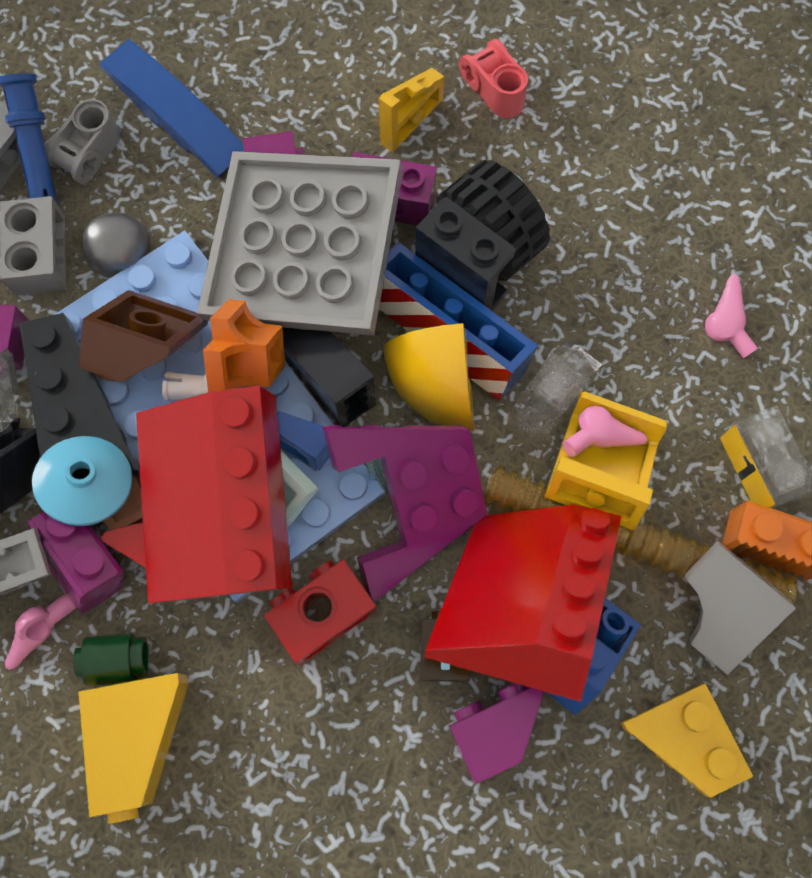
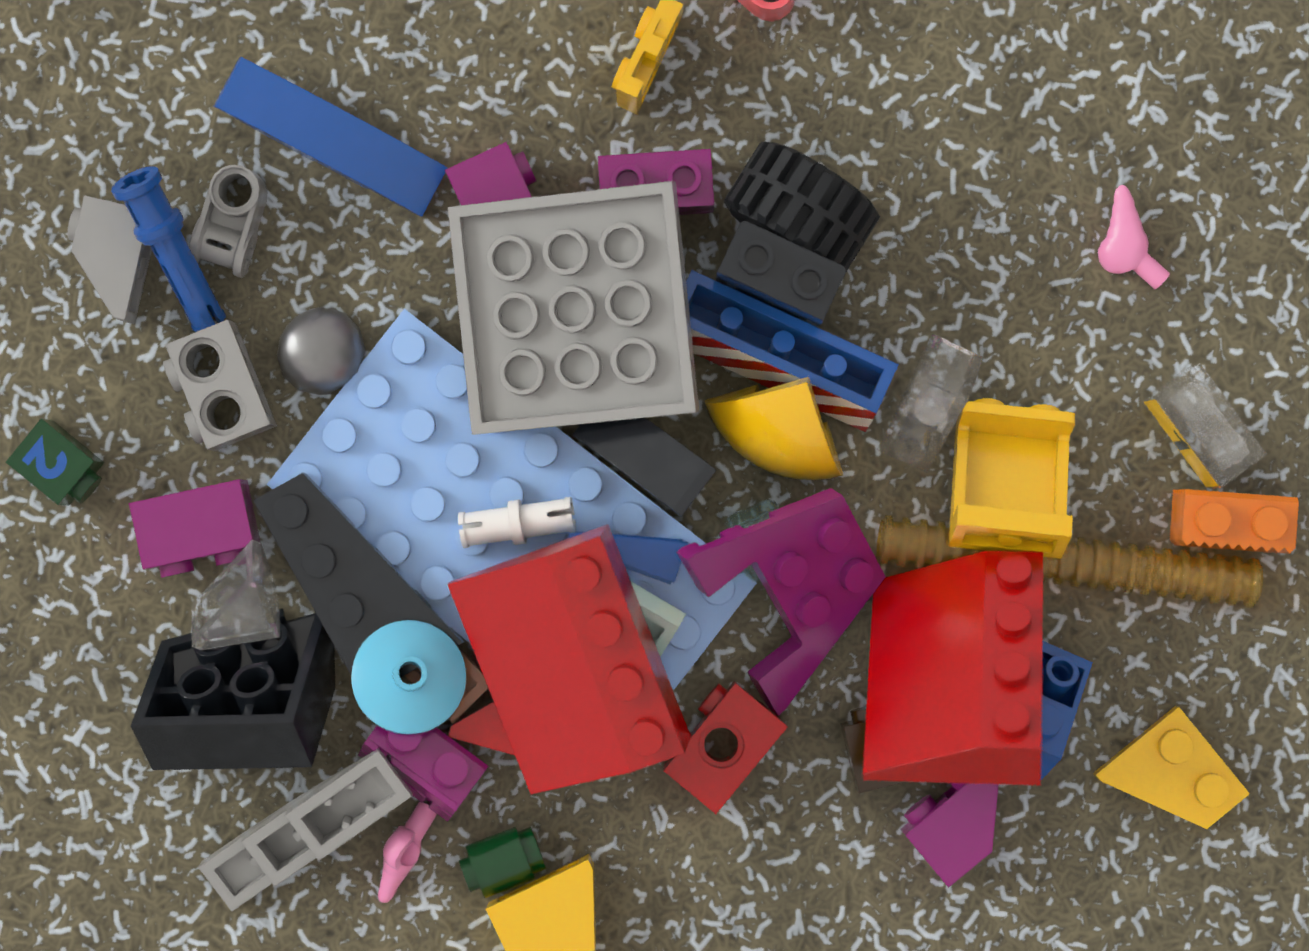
camera: 15 degrees left, 15 degrees up
(134, 335) = (411, 479): reddish brown slope -> none
(242, 349) = (547, 472): orange brick -> none
(601, 430) = (998, 446): bright pink animal -> none
(735, 607) = (1194, 615): light grey tile -> none

